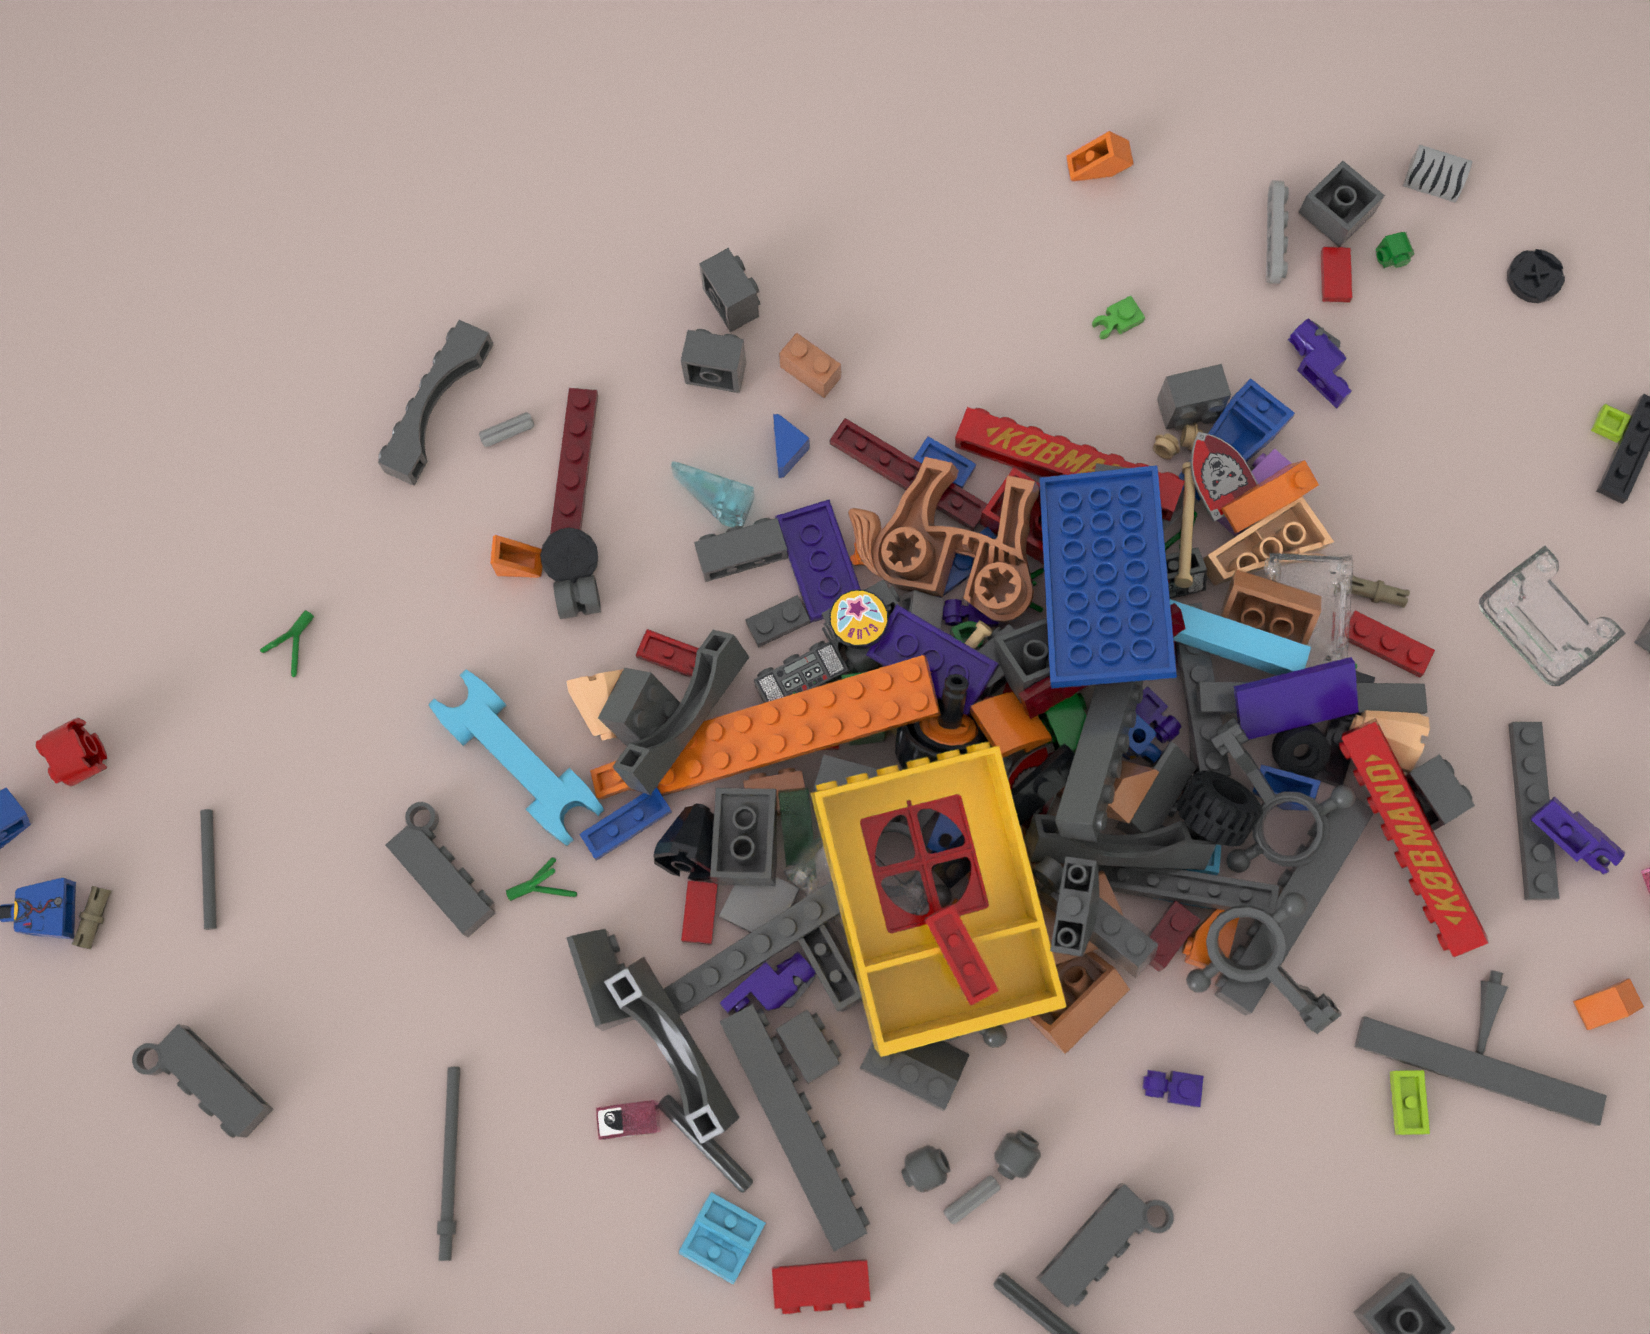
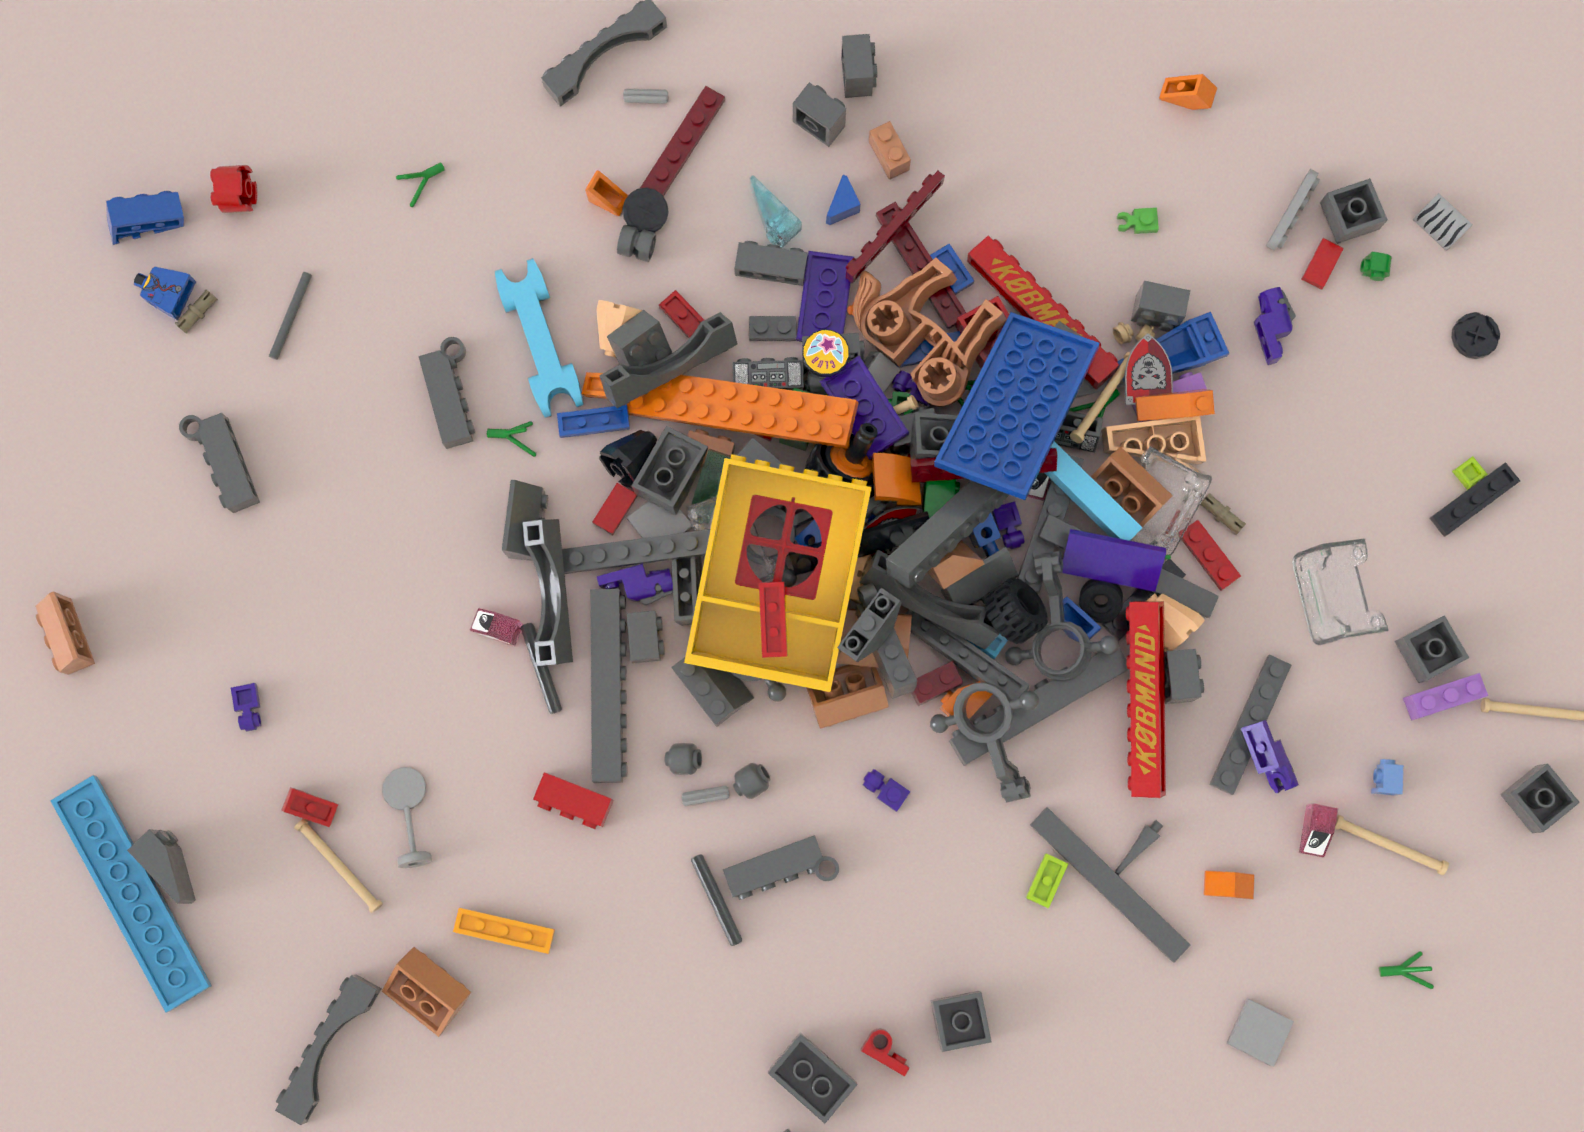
camera: 25 degrees right, 5 degrees up
(446, 1226) = (339, 637): dark grey bar -> none
(722, 1238) = (521, 737): medium azure slope -> none
(855, 456) = (888, 232): none -> dark red plate

